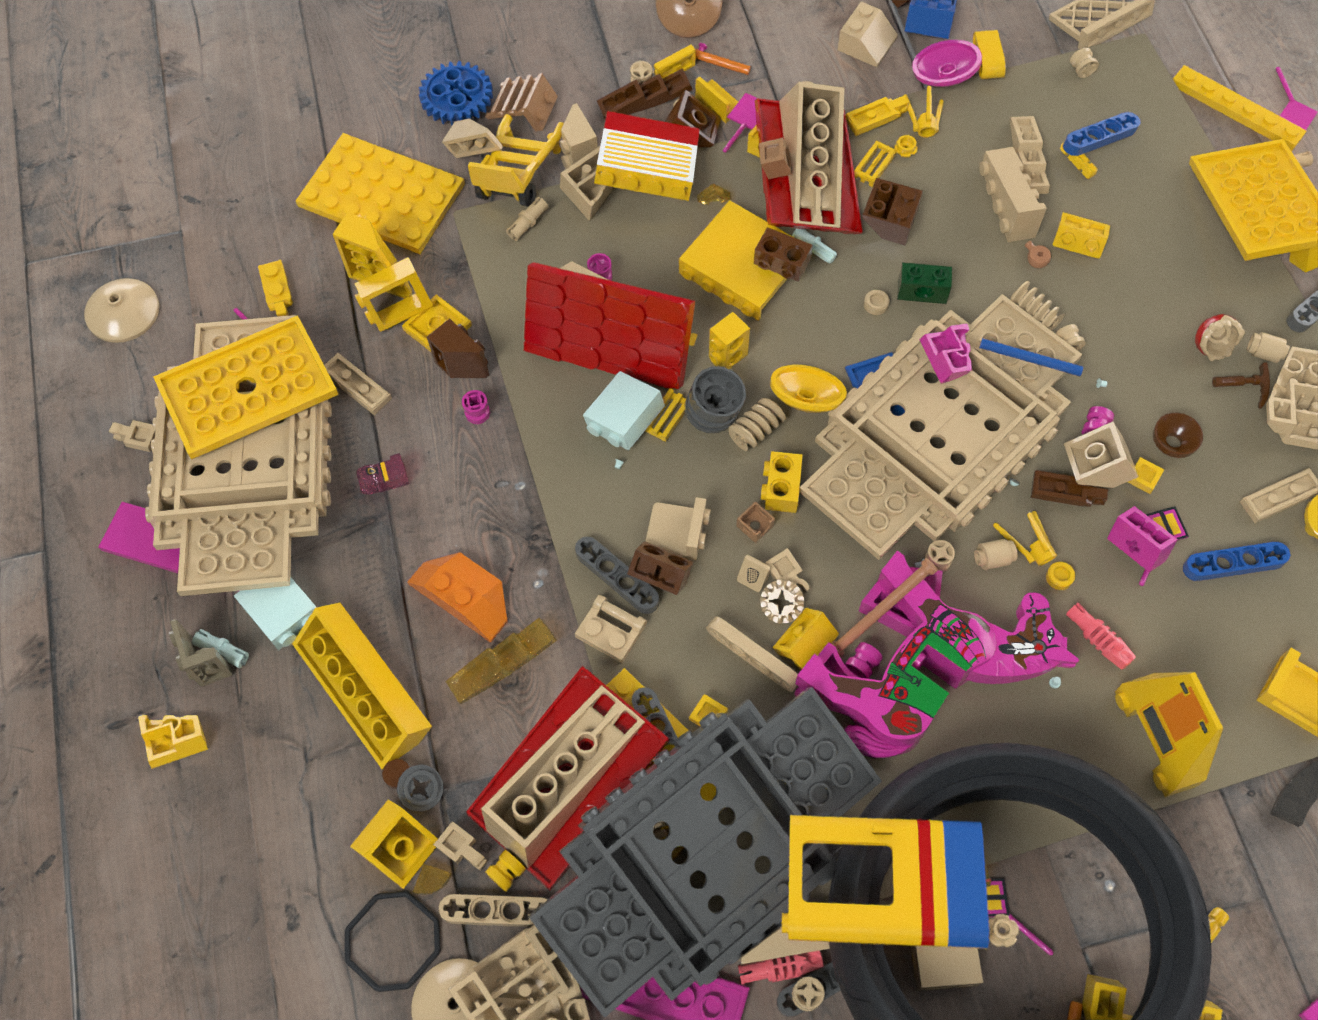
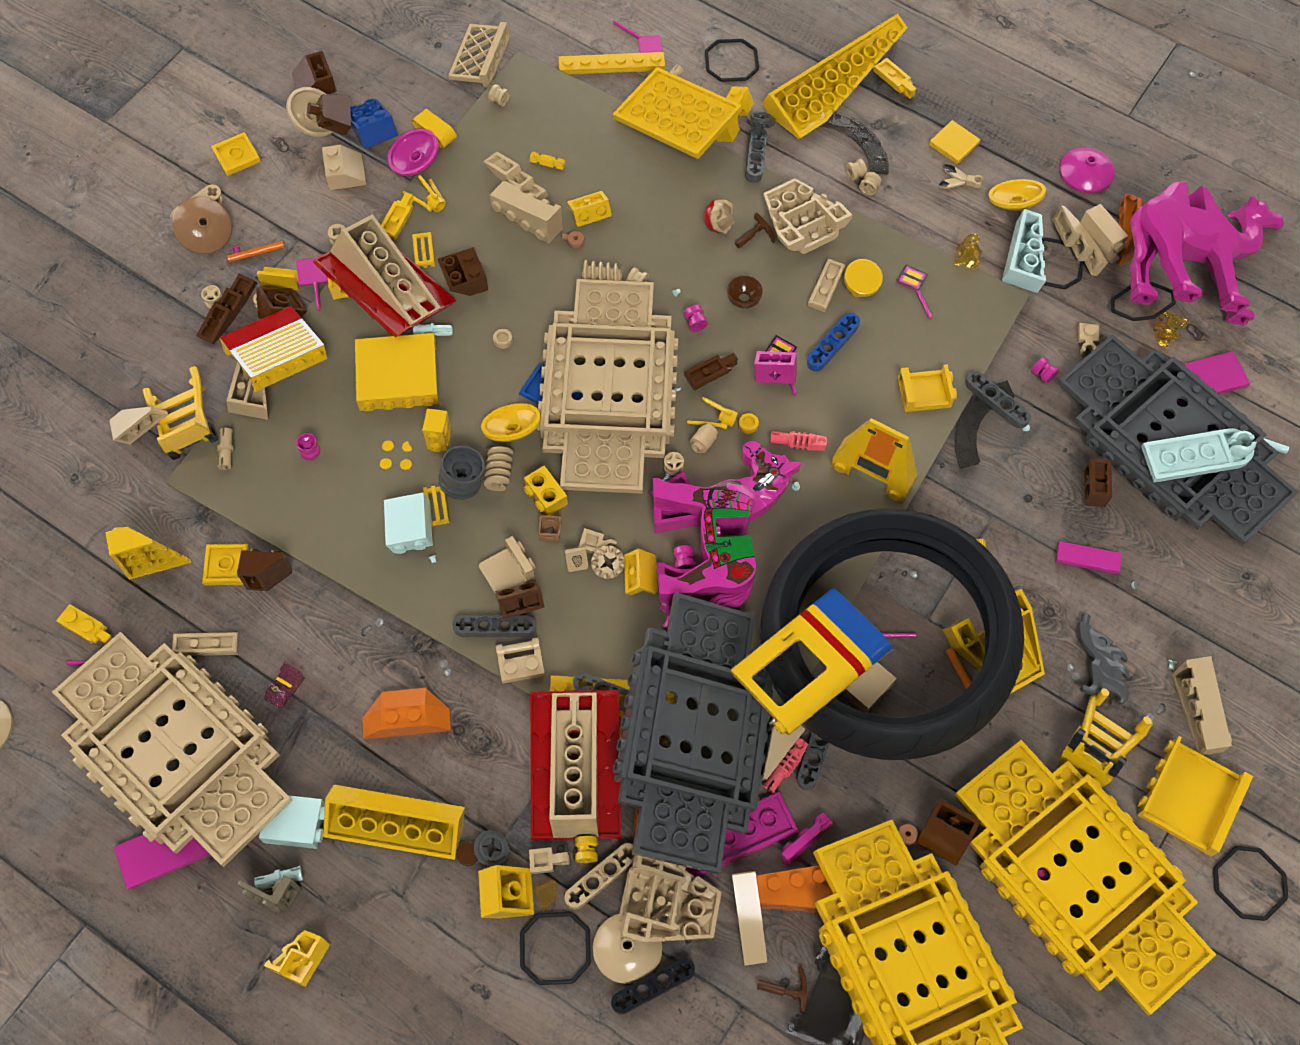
camera: 45 degrees left, 0 degrees up
(136, 436) = (81, 798): tan plate -> none
(205, 394) = (131, 736): yellow plate -> none
(385, 281) = (171, 560): yellow window -> none
(391, 190) = (81, 507): yellow plate -> none
(455, 92) = (88, 399): blue gear -> none
(475, 407) = (308, 599): dark pink wheel -> none
(500, 661) = (469, 735): clear yellow slope -> none
(525, 97) = (153, 367): medium nougat plate -> none
(577, 137) = (215, 371): tan slope -> none
(606, 324) = (351, 477): red piece -> none
(682, 59) = (230, 272): yellow tile -> none
(704, 707) = (622, 661): yellow plate -> none
(712, 194) = (337, 342): clear yellow tile -> none
(753, 653) = (618, 605): tan beam -> none
(775, 158) = (366, 291): medium nougat brick -> none
(778, 249) = (422, 346): reddish brown brick -> none
(813, 988) = (817, 761): tan wheel -> none
(884, 606) = (681, 474): nougat bar -> none
(906, 146) = (434, 221): yellow plate -> none
(924, 283) = (523, 305): dark green brick -> none
(948, 352) = (578, 338): dark pink slope -> none
(1011, 930) = (897, 635): tan plate -> none
(1031, 357) = (627, 305): blue bar -> none
(1101, 458) = (715, 337): tan slope -> none
(1105, 137) = (552, 136): blue beam -> none
(1147, 475) = (746, 329): yellow plate -> none
(1268, 347) = (750, 202): tan brick -> none

